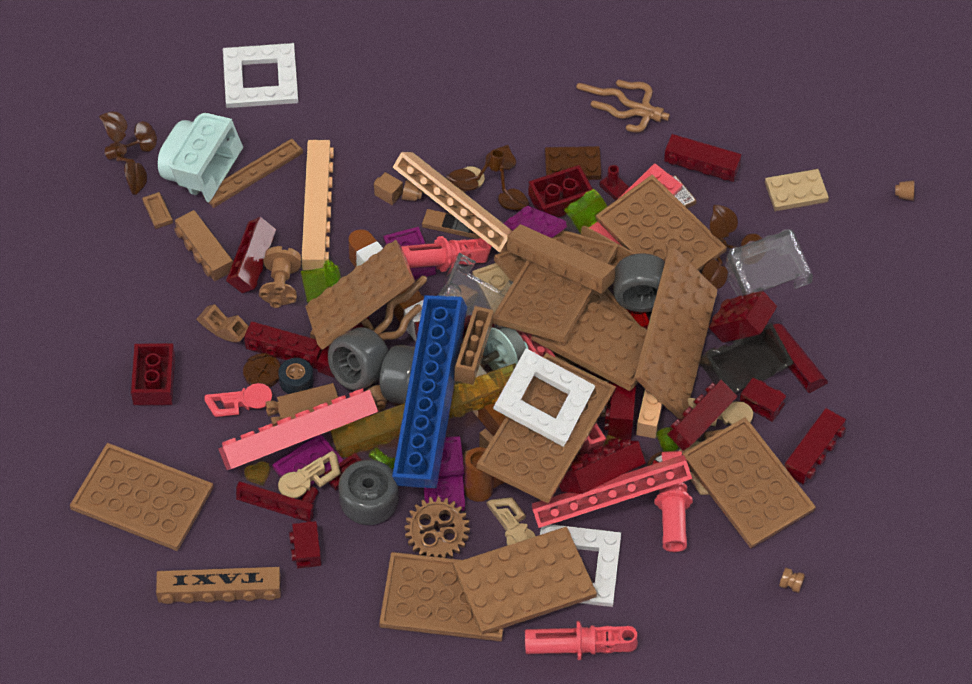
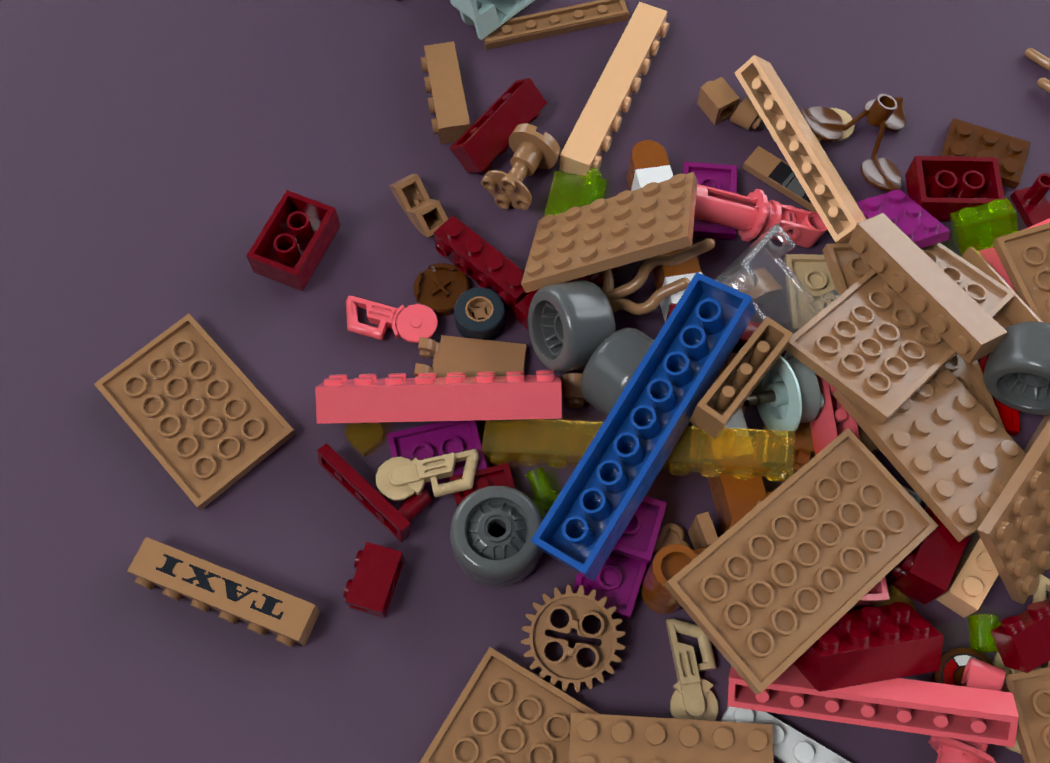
camera: 25 degrees right, 10 degrees up
(157, 210) = (414, 29): medium nougat tile -> none
(512, 406) = (876, 519): white plate -> none

